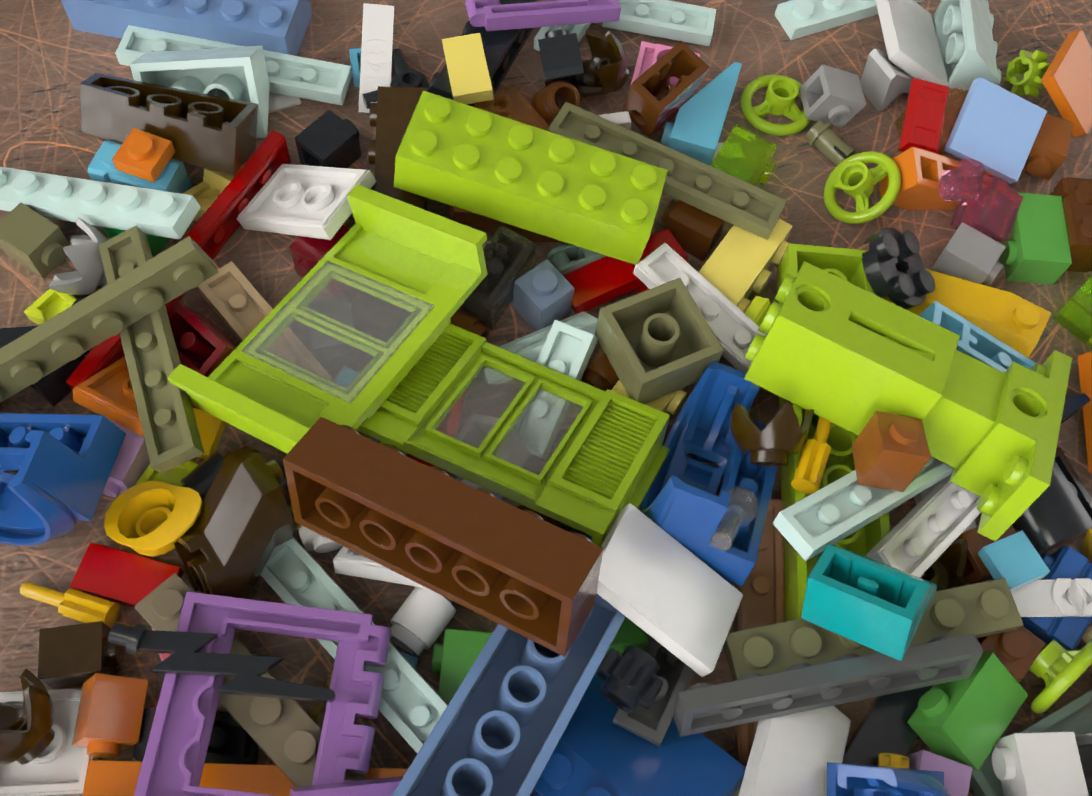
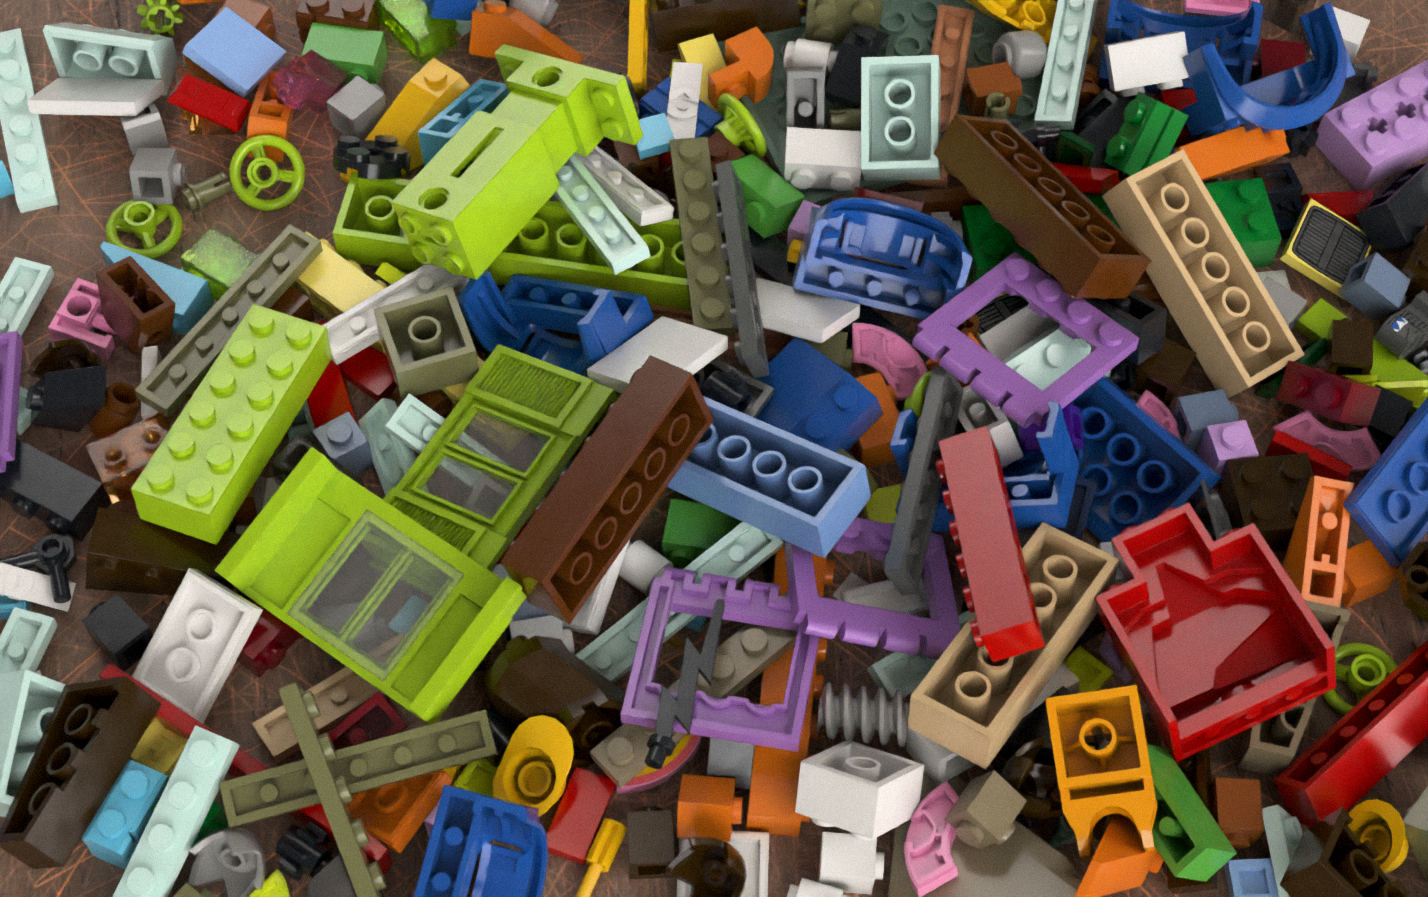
camera: 80 degrees left, 5 degrees down
(143, 155) = (124, 784): orange plate -> none
(467, 69) = (63, 480): light yellow tile -> none
(741, 510) = (585, 300): clear bar -> none
(778, 439) = (531, 277): dark brown piece -> none
(813, 460) = (553, 248): yellow axle -> none
(866, 600) = (686, 221): teal slope -> none
(890, 451) = (566, 182): dark orange brick -> none

